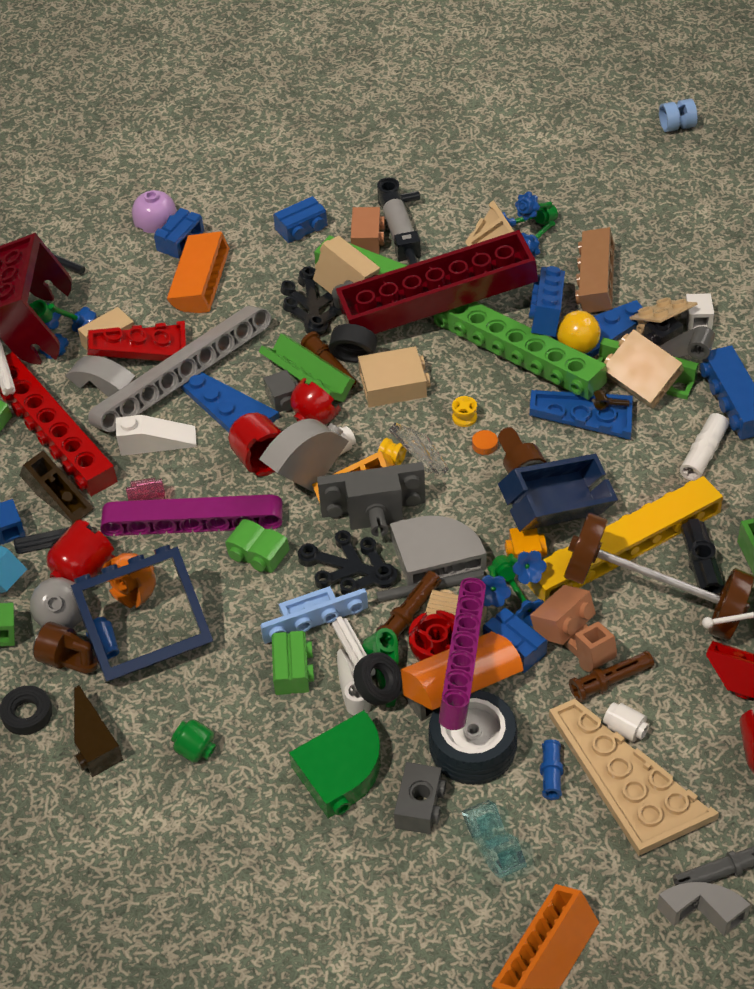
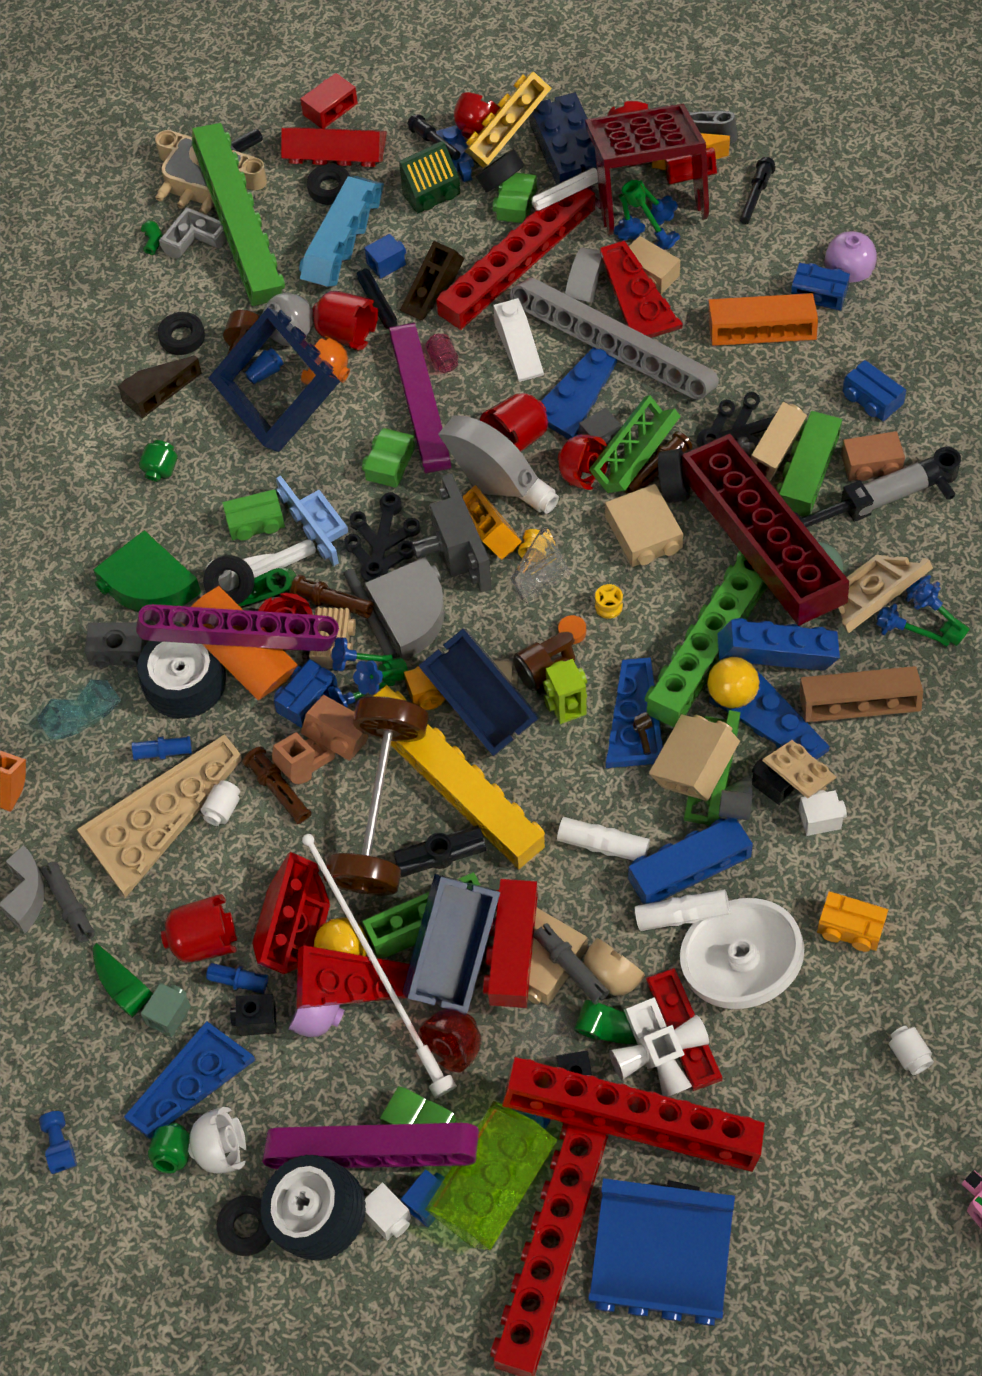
camera: 80 degrees right, 10 degrees up
(560, 438) = (565, 690): none -> lime brick

